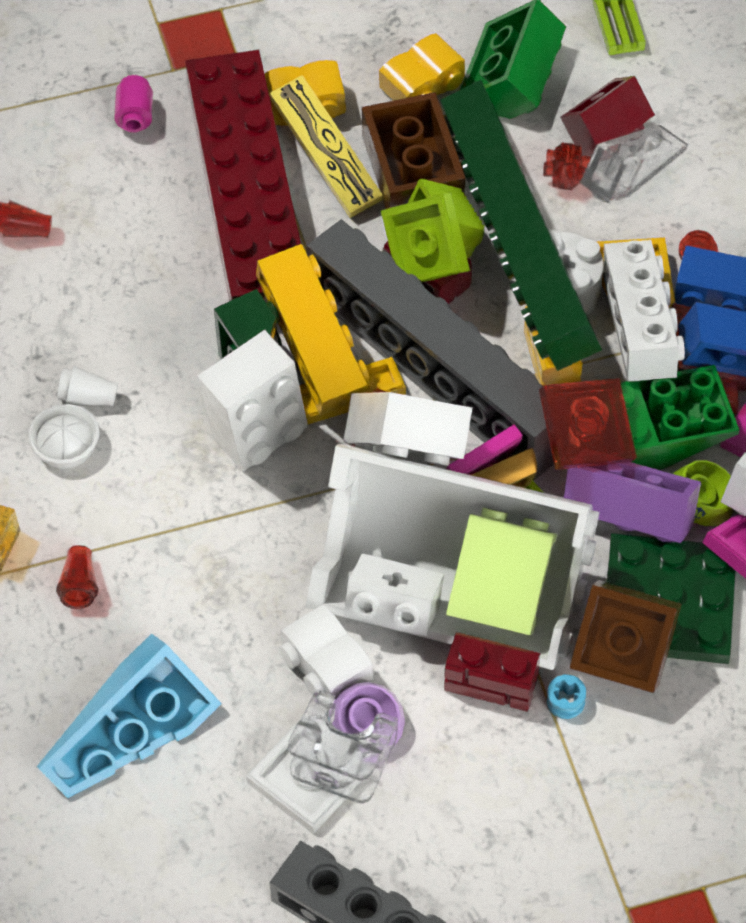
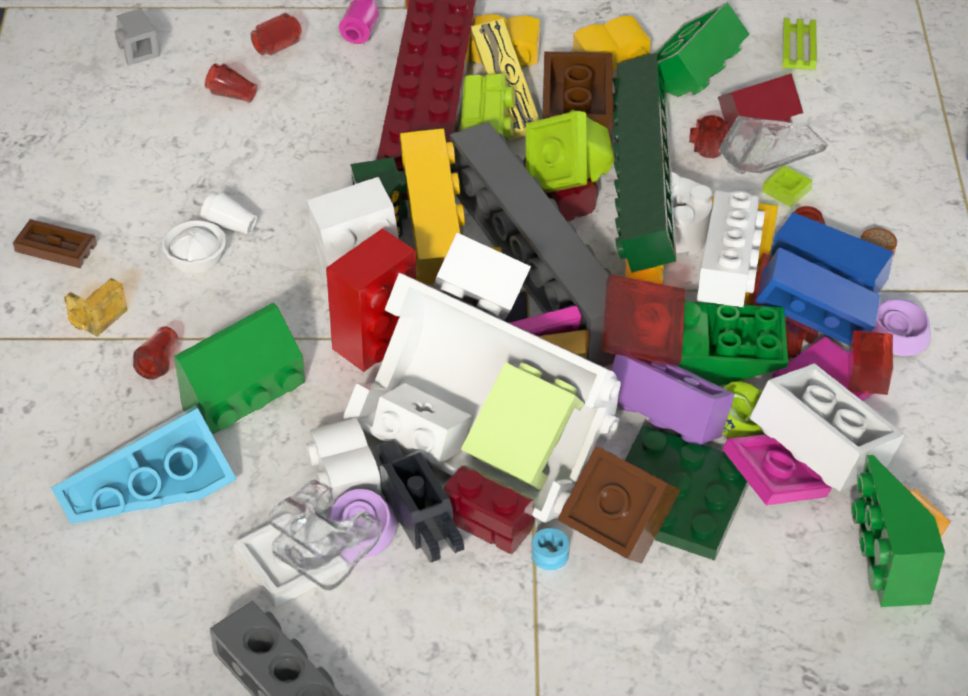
camera: 15 degrees right, 10 degrees down
(47, 144) = (276, 34): none -> clear red brick
(182, 579) = (240, 368): none -> green slope
(295, 466) = (359, 293): none -> red brick
(320, 193) = (489, 101): none -> lime brick
(420, 681) = (418, 501): none -> black hinge
(662, 206) = (787, 186): none -> lime tile

